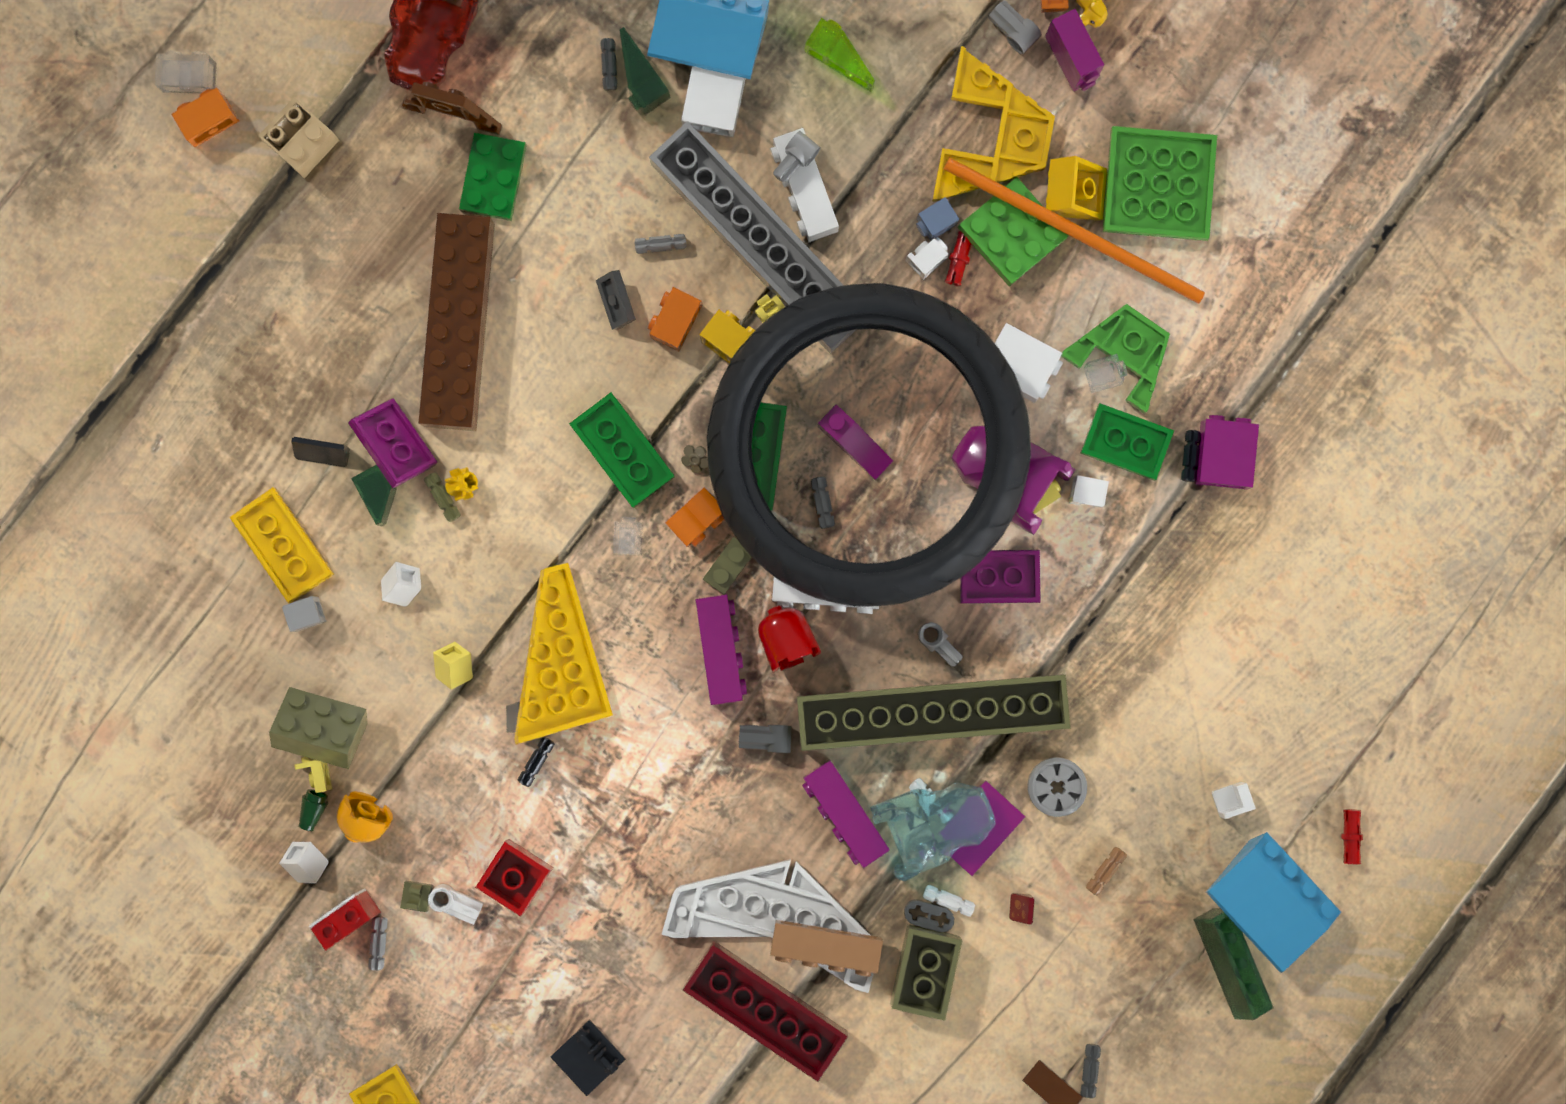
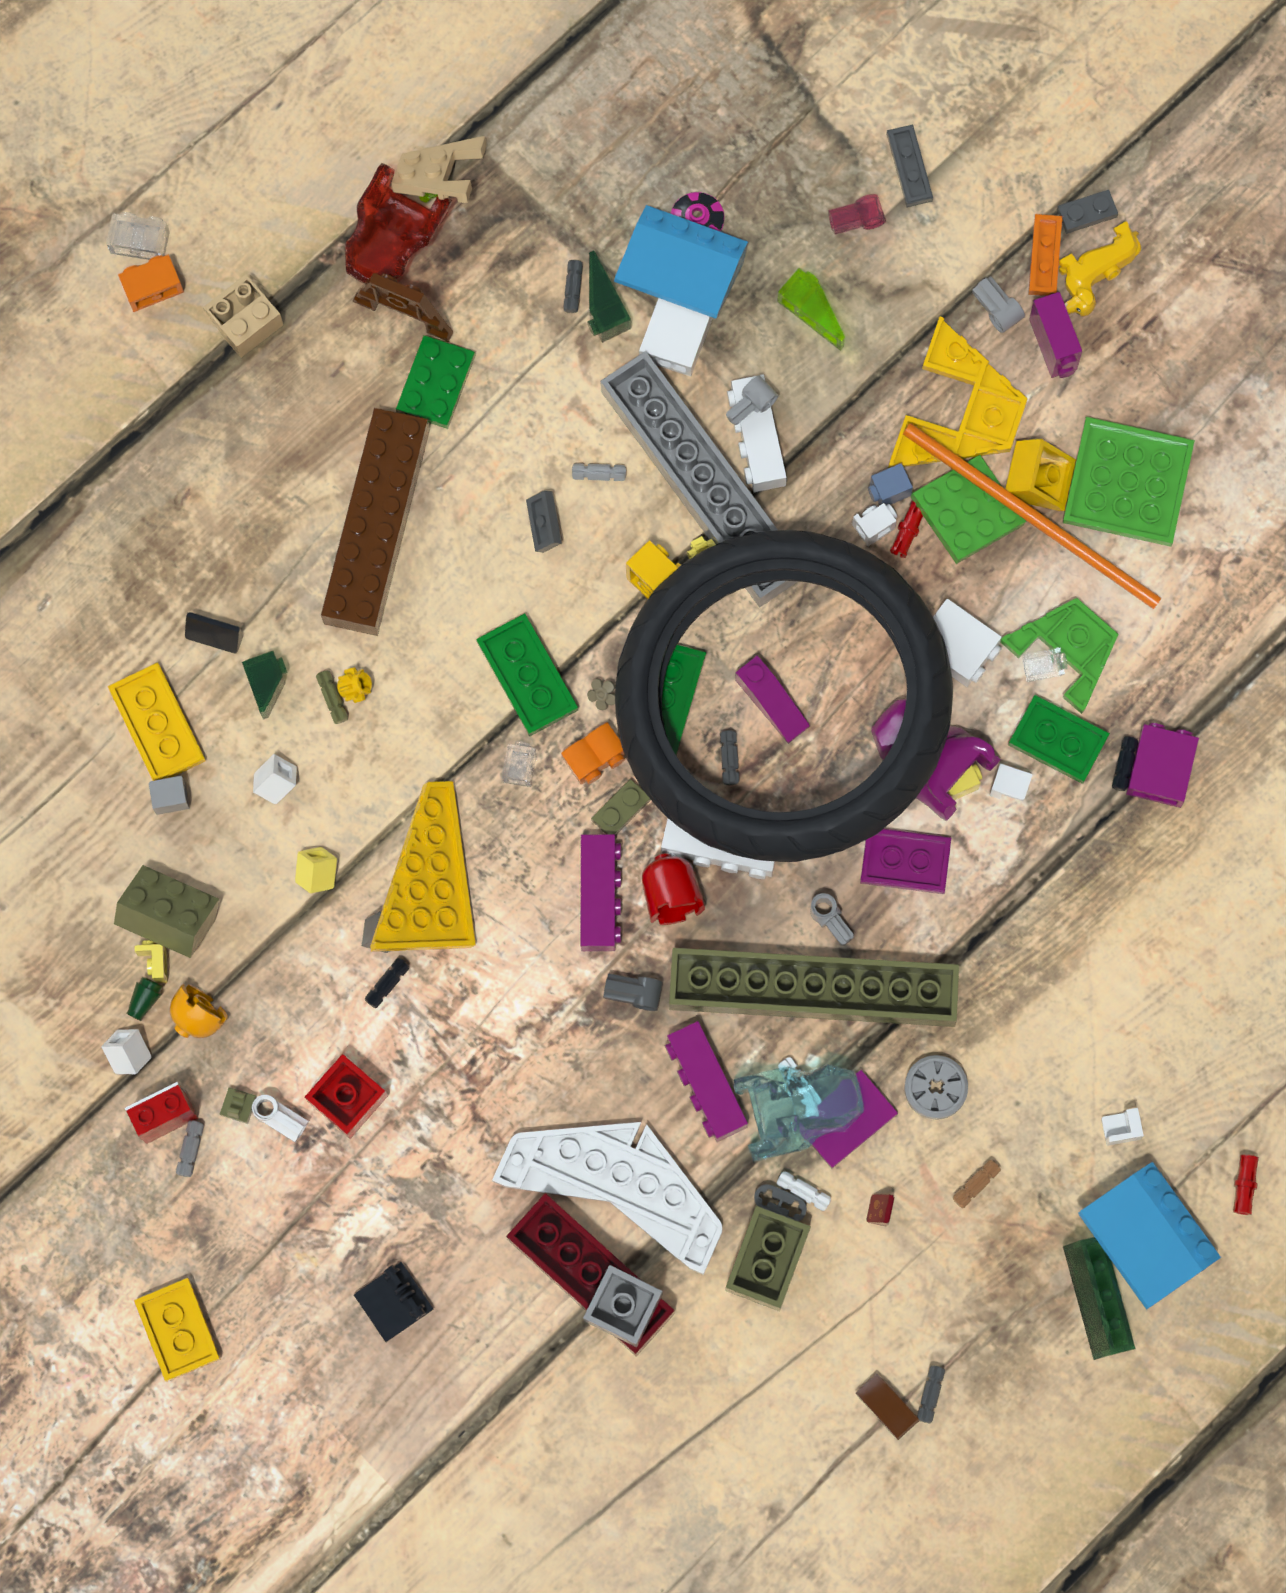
camera: 10 degrees right, 10 degrees down
(392, 442) = (290, 633): magenta tile -> none
(675, 318) = (602, 549): orange brick -> none
(801, 1046) = (623, 1306): none -> light grey brick
(826, 946) = (664, 1214): medium nougat brick -> none

